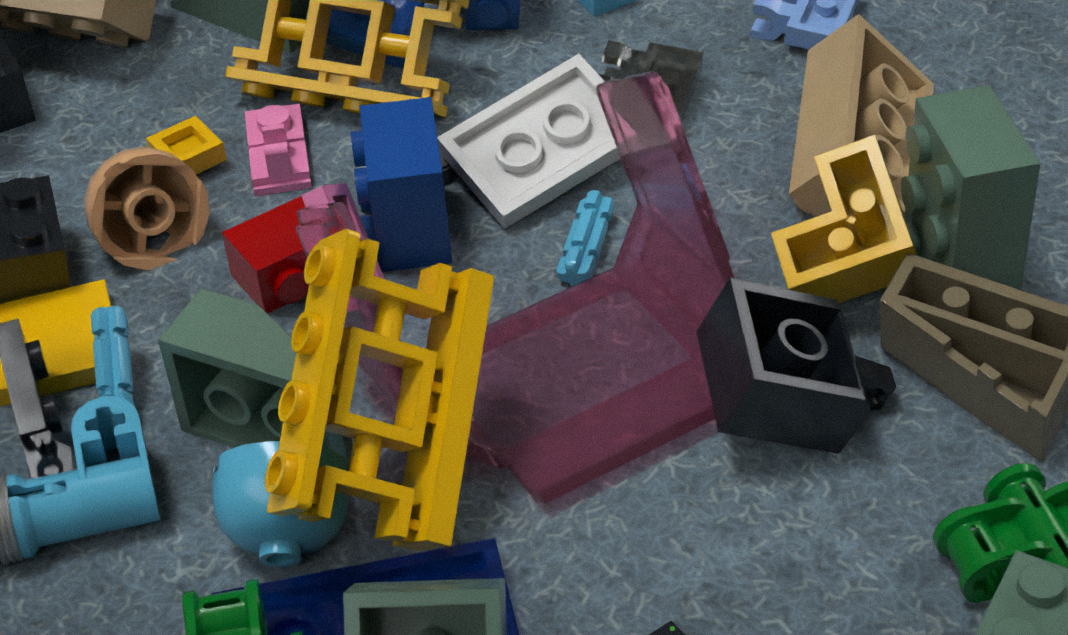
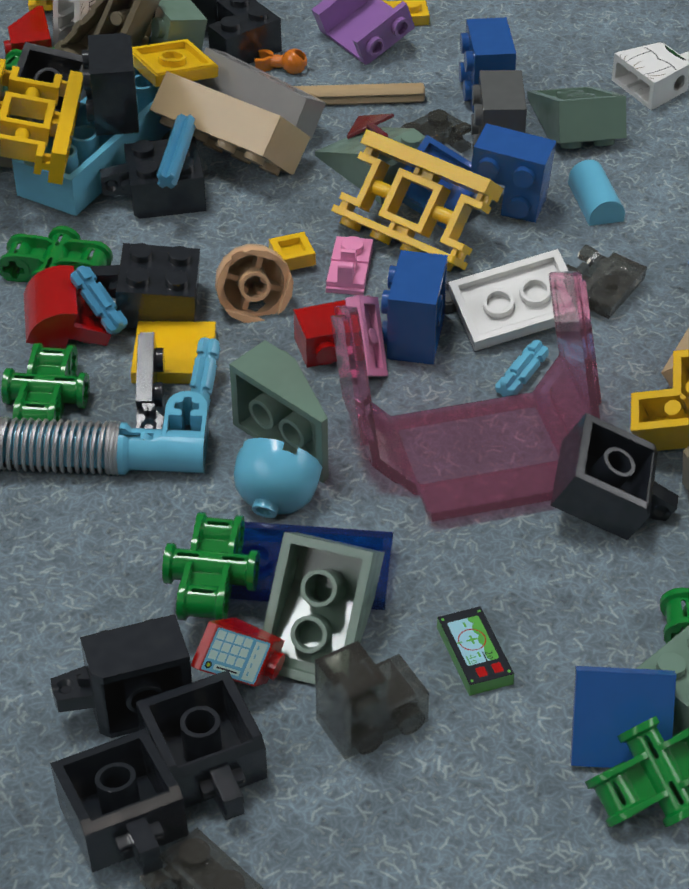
camera: 15 degrees right, 0 degrees up
(432, 400) = (378, 442): yellow fence -> none

